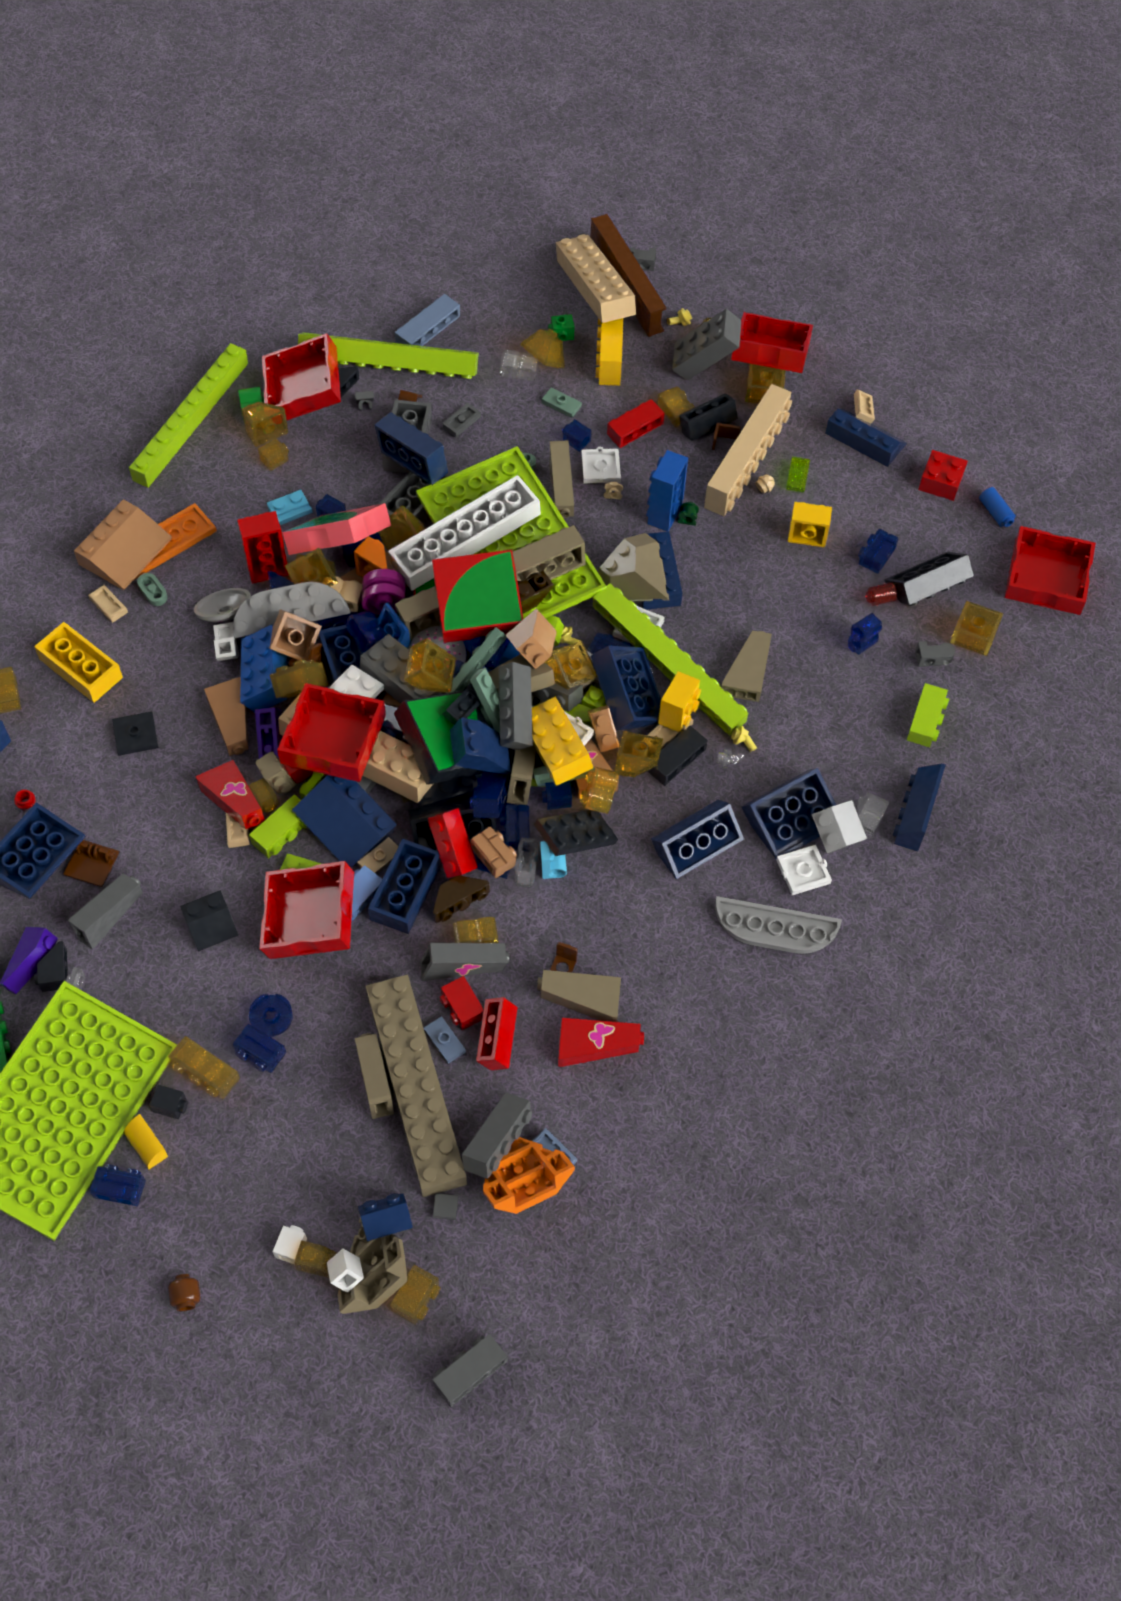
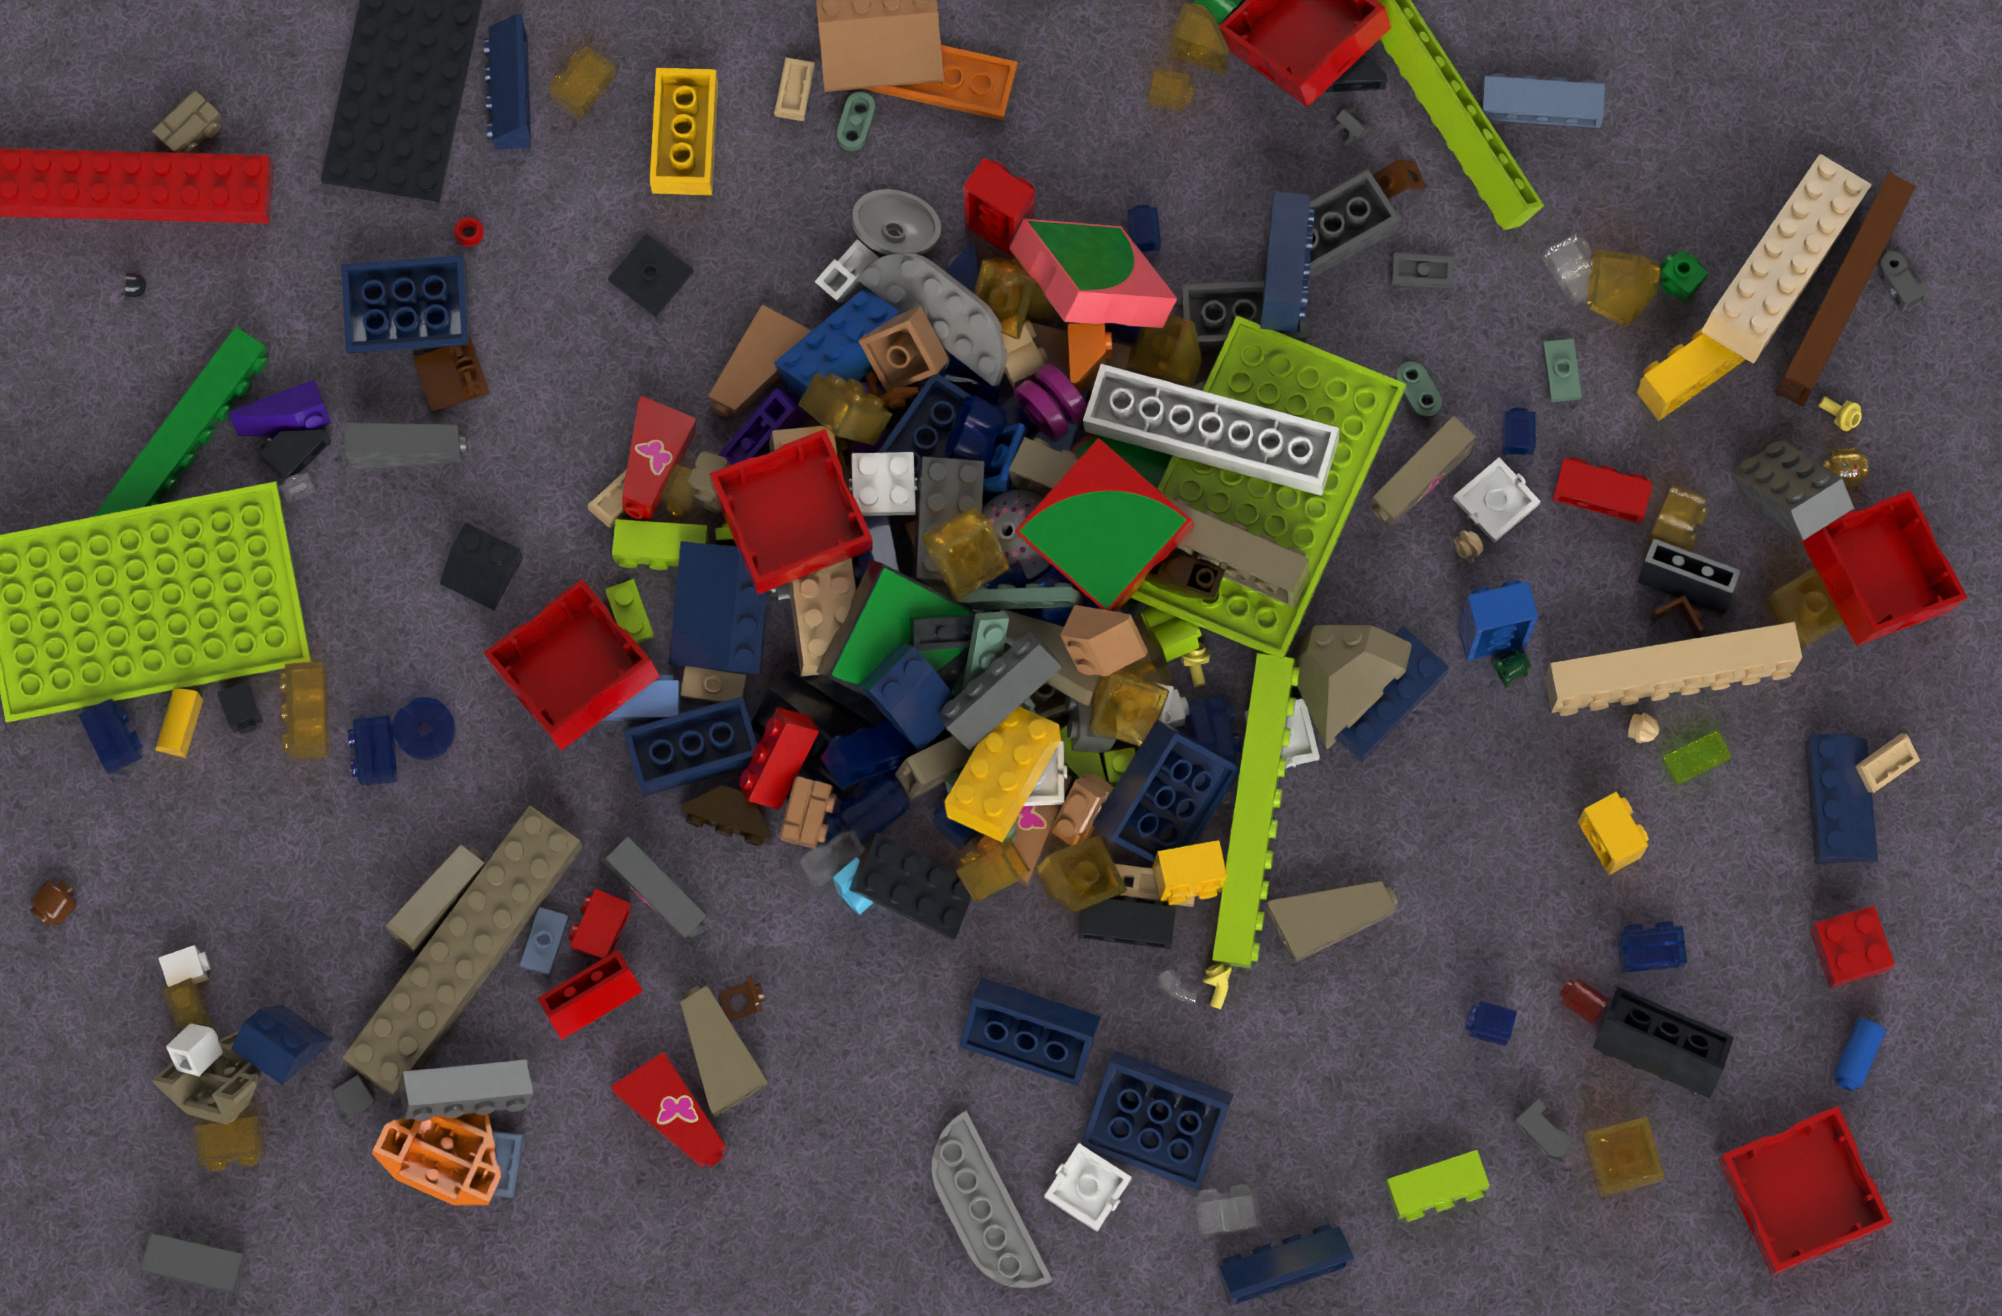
camera: 55 degrees right, 15 degrees up
(290, 507) = (1110, 175): medium azure plate -> none
(476, 931) = (697, 874): clear yellow brick -> none
(839, 826) = (1171, 1188): light grey slope -> none

